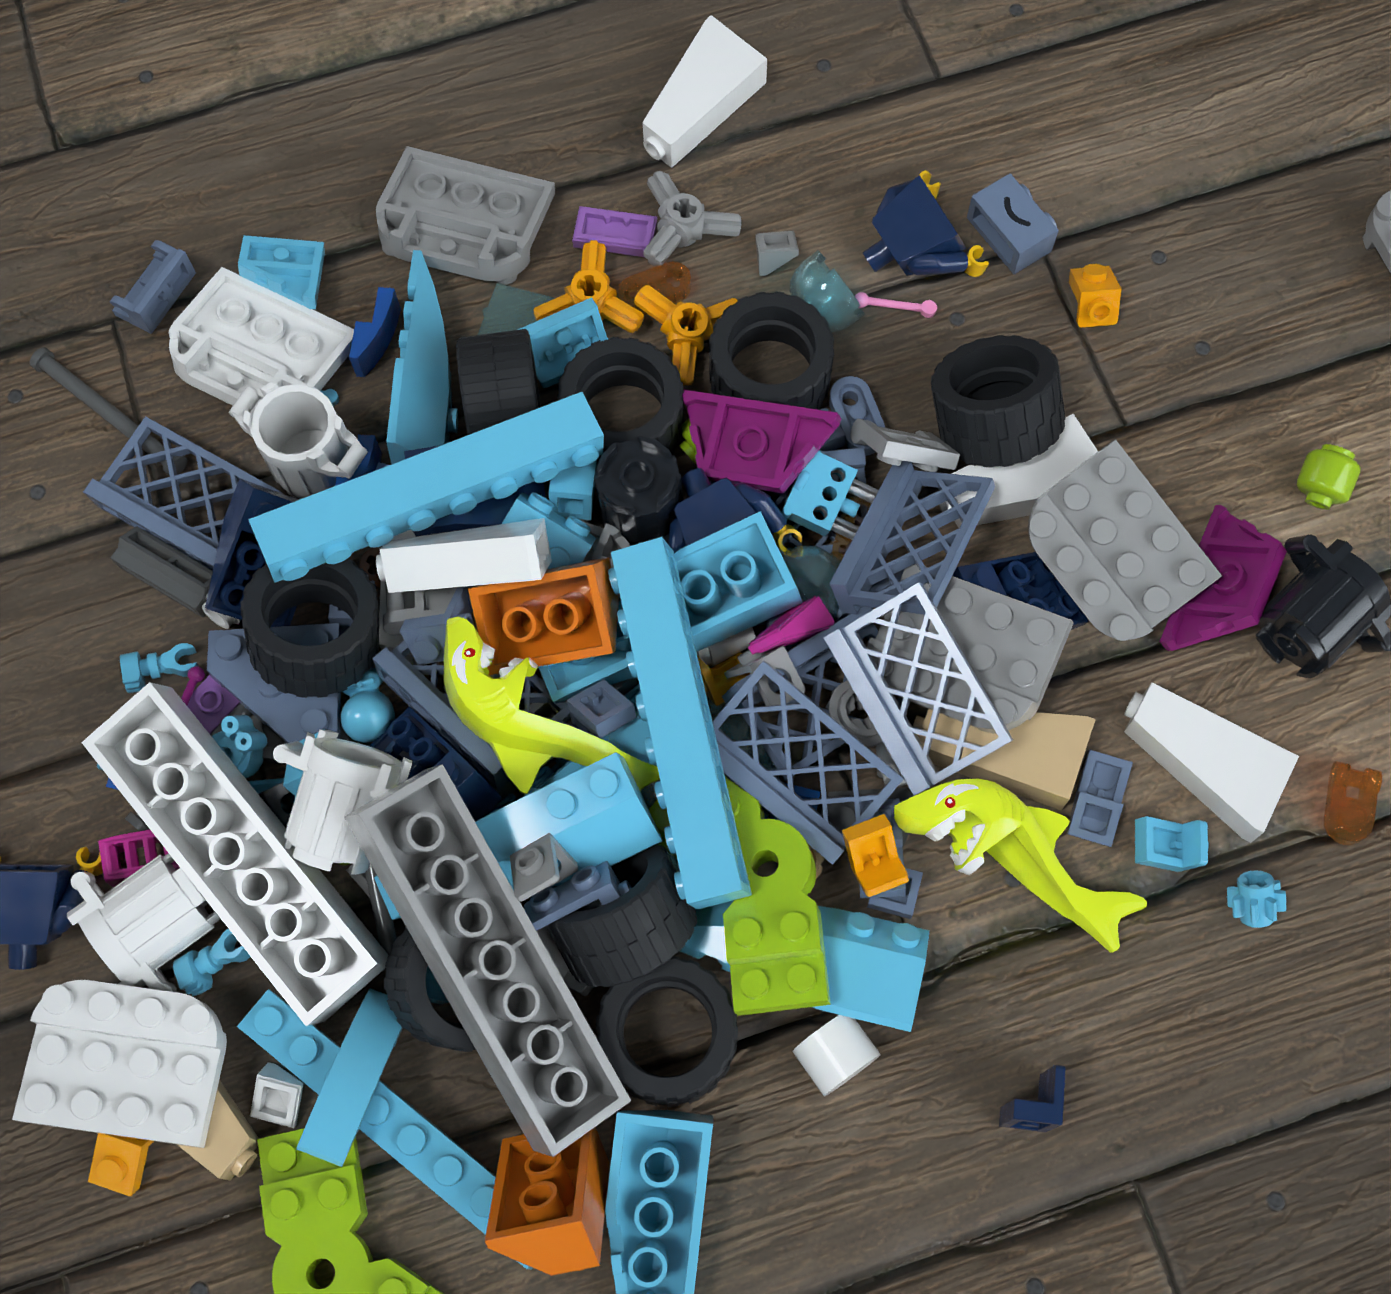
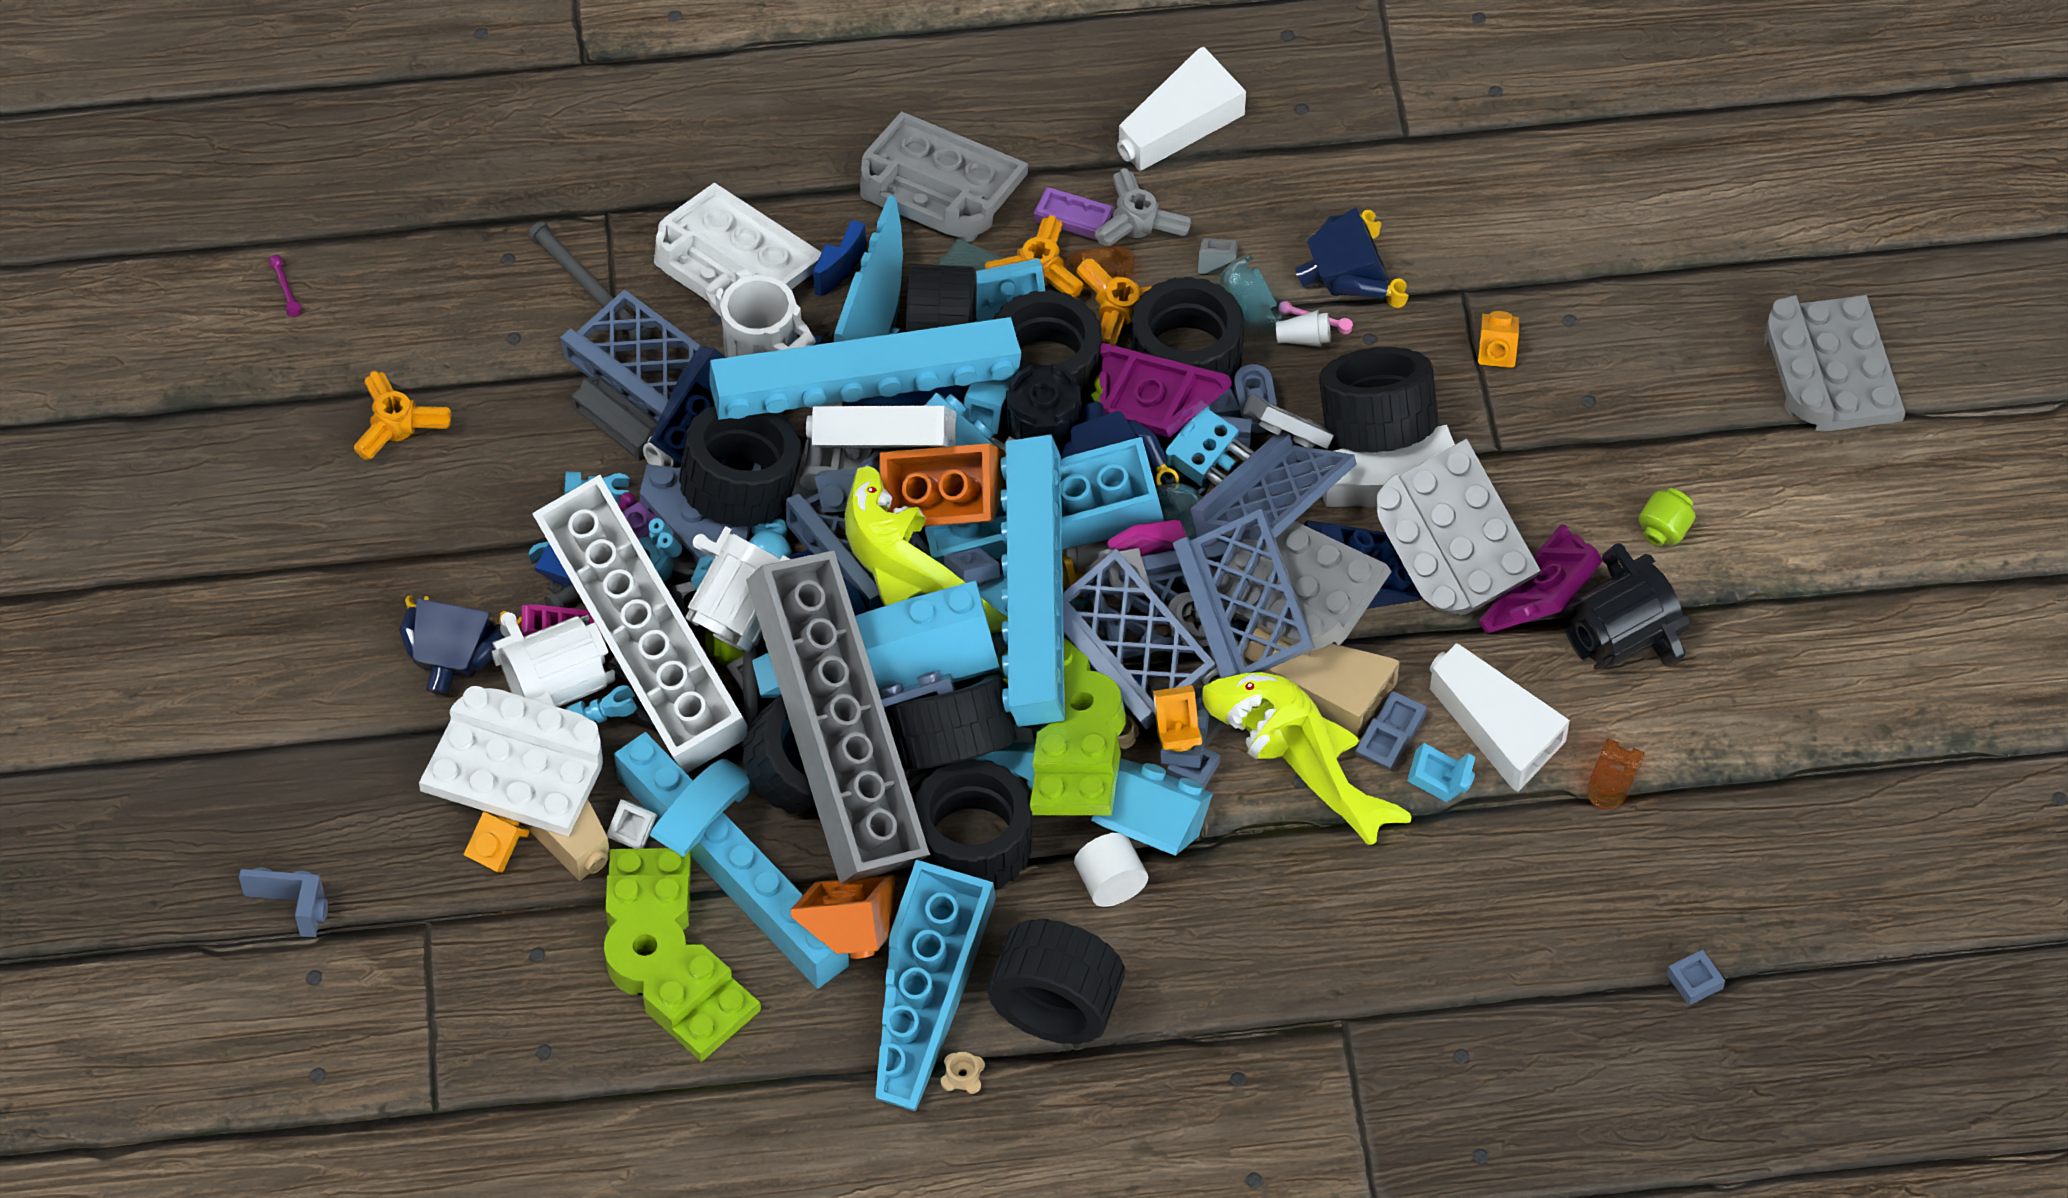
camera: 10 degrees right, 15 degrees down
(156, 288) = (651, 191): sand blue hinge -> none
(284, 266) = (770, 191): medium azure wing -> none
(537, 866) = (892, 650): light grey bracket -> none
(814, 1238) = (1056, 981): none -> black tyre
(890, 323) = (1306, 329): none -> white cone
(1012, 223) = (1438, 266): sand blue brick -> none
(1039, 1115) = (1266, 934): dark blue panel -> none
(1256, 899) = (1504, 825): medium azure gear -> none

